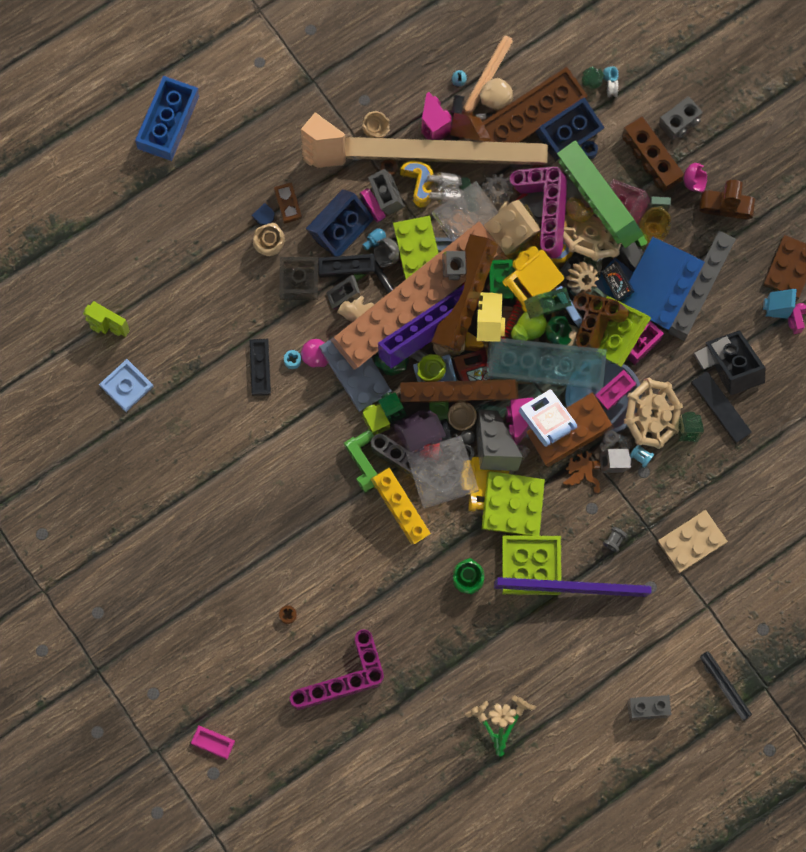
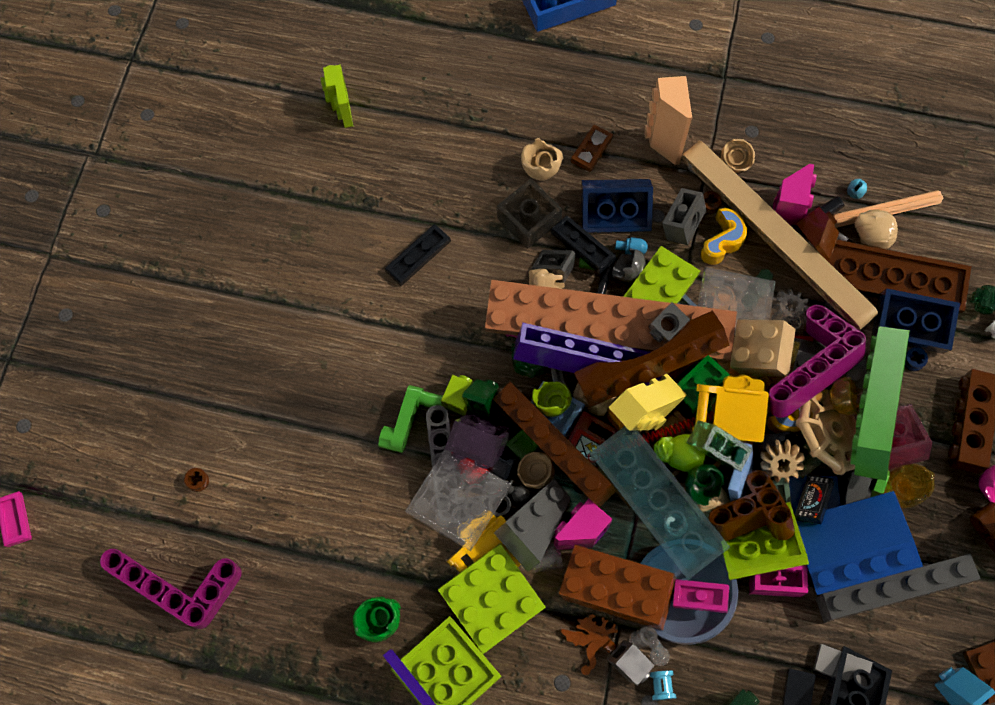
camera: 55 degrees right, 5 degrees down
(126, 385) = (299, 163): light blue tile -> none
(264, 215) = (562, 140): dark blue tile -> none
(290, 364) = (450, 282): medium azure bush -> none
(312, 354) = (474, 289): dark pink hair -> none
(363, 384) = (483, 352): sand blue plate -> none
(372, 205) = (663, 209): dark pink beam -> none
(400, 506) = (389, 489): yellow brick -> none
(447, 186) = (745, 260): clear piece -> none
(549, 420) = (602, 555): light blue container -> none
(660, 201) = (940, 472): sand green plate -> none
(661, 409) = (724, 667): tan plate -> none

